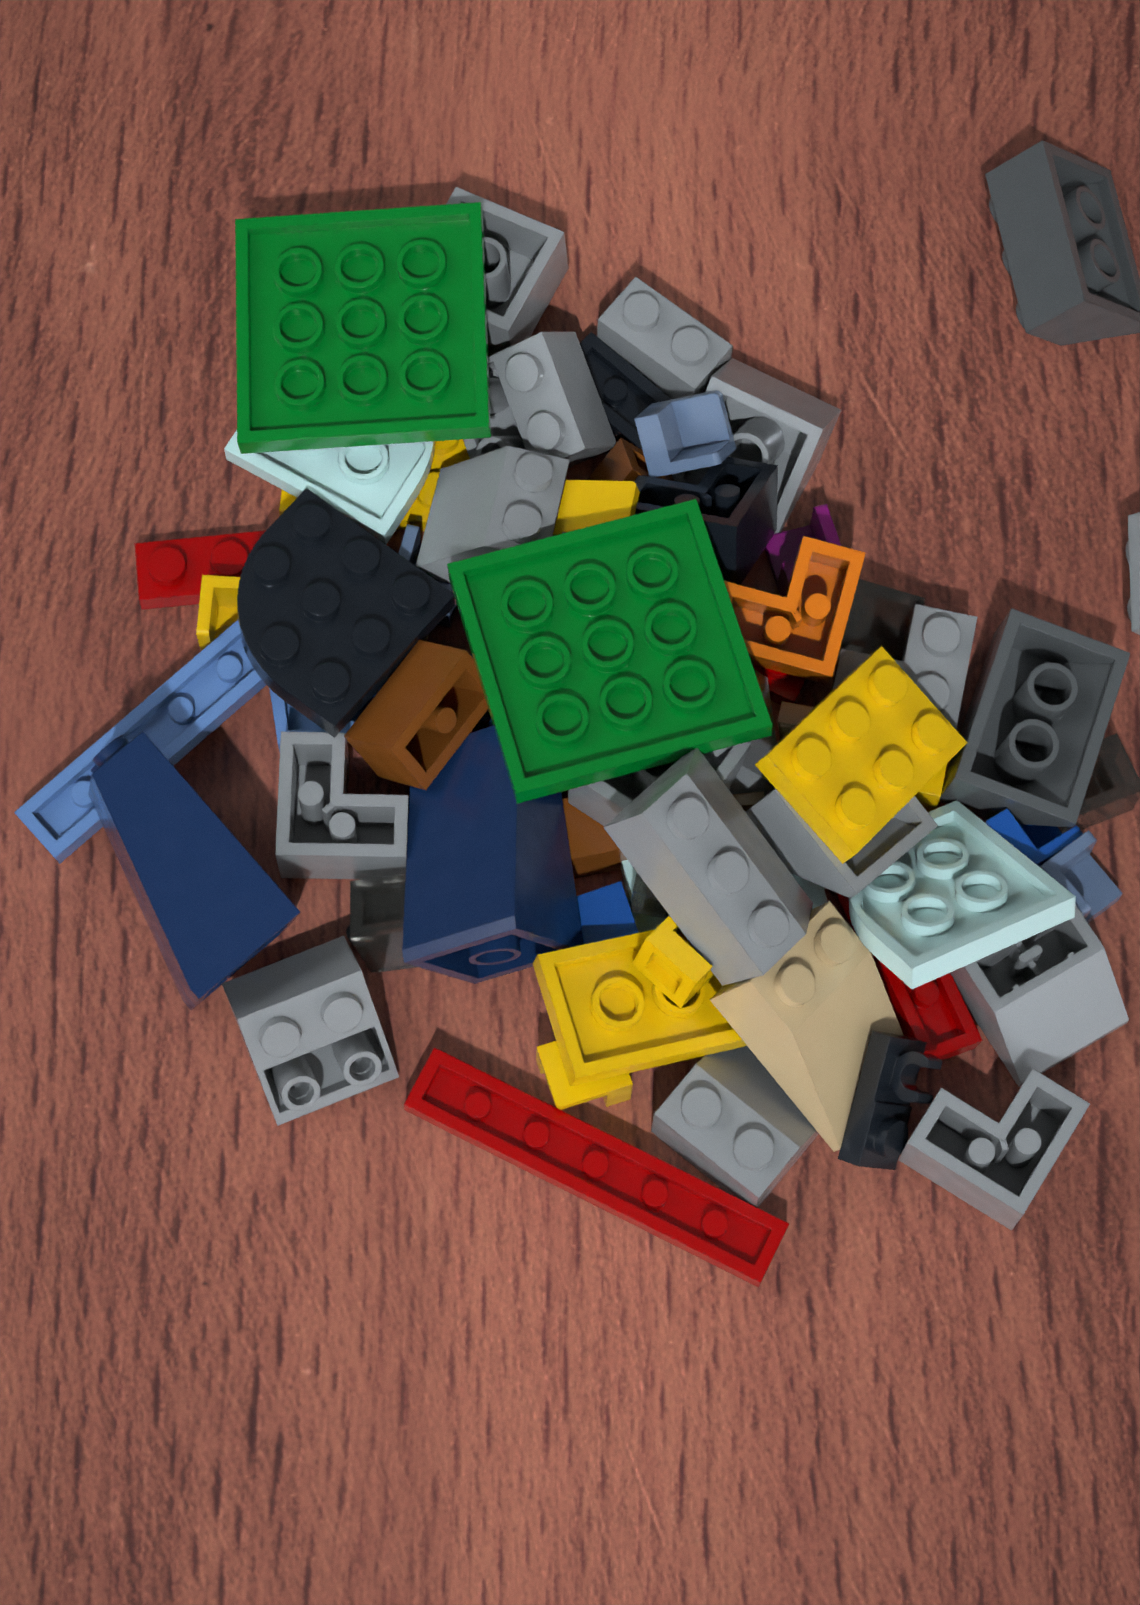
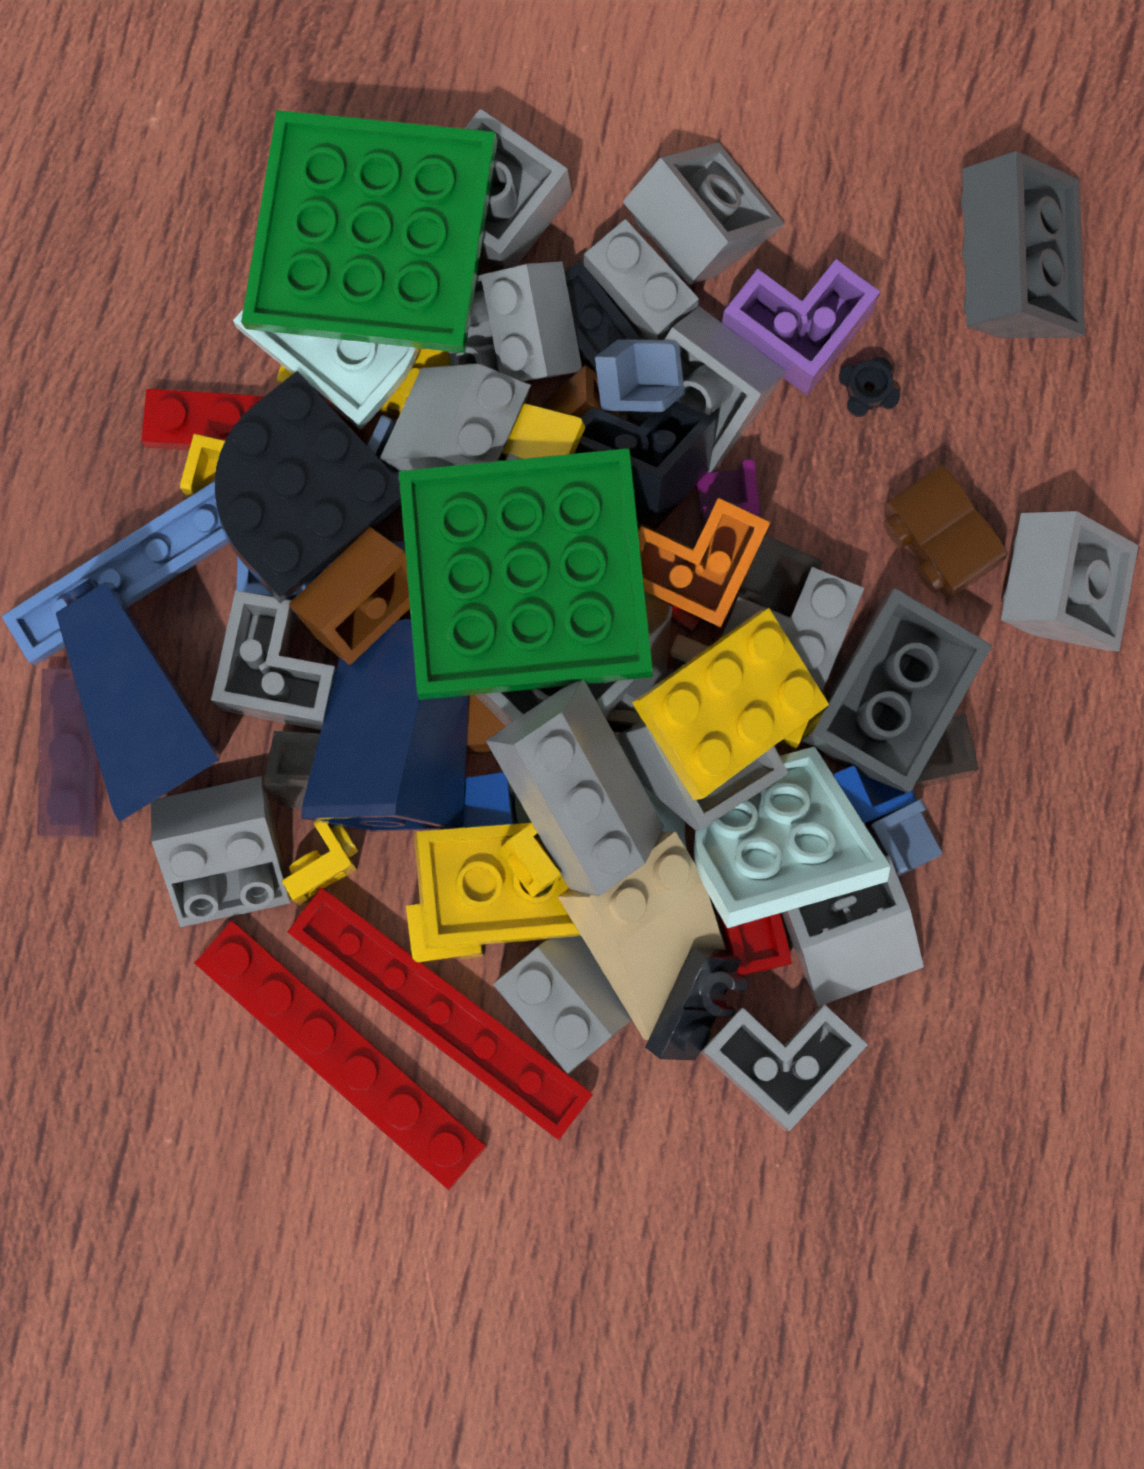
camera: 15 degrees right, 10 degrees up
(115, 958) = (66, 762): none -> clear purple plate
(436, 1028) = (319, 871): none -> yellow bracket
(490, 1236) = (340, 1055): none -> red plate
(713, 262) = (701, 211): none -> light grey slope
(849, 365) = (807, 333): none -> medium lavender brick
(937, 399) = (870, 371): none -> black plate
(1048, 552) = (943, 533): none -> reddish brown brick

